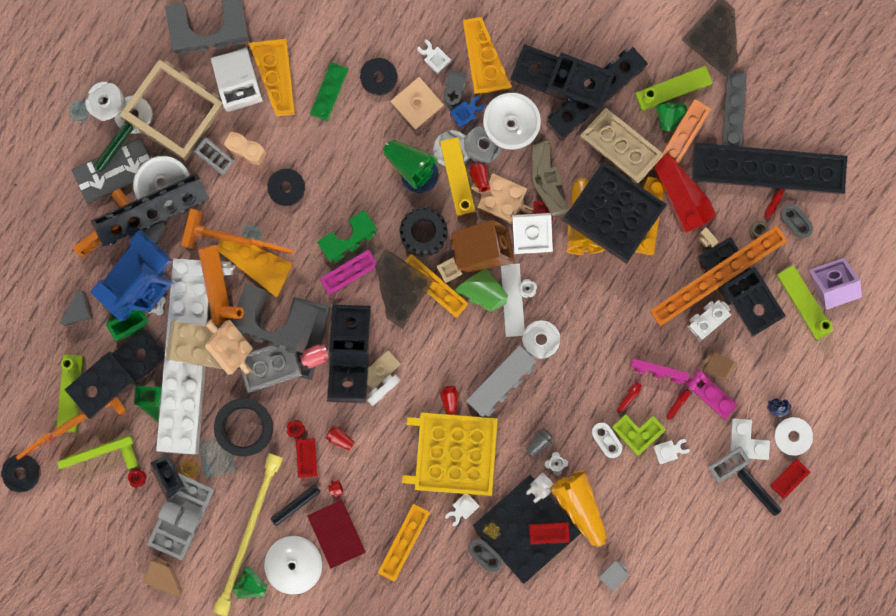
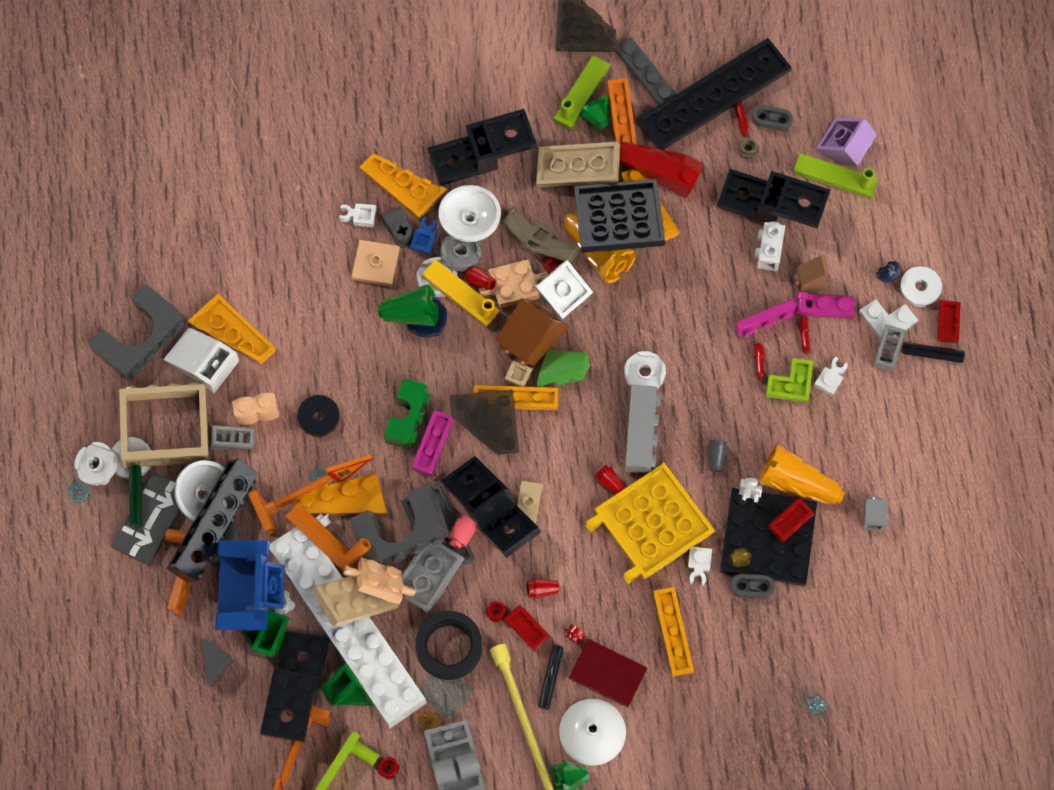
camera: 40 degrees left, 15 degrees down
(71, 369) = (268, 747): lime piece -> none
(166, 476) = (414, 743): black slope -> none
(329, 91) = (291, 310): green plate -> none
(378, 65) = (318, 256): black tile -> none
(389, 383) = (546, 508): white plate -> none
(415, 217) = (464, 343): black tyre -> none
(514, 307) = (599, 365): white sticker -> none
(527, 293) = (597, 333): white plate -> none
(561, 463) = (746, 456): white plate -> none
(606, 440) = (772, 407): white plate -> none
(628, 57) = (516, 189): black brick -> none
(707, 238) = (712, 184): tan plate -> none
(718, 276) = (747, 205): orange plate -> none

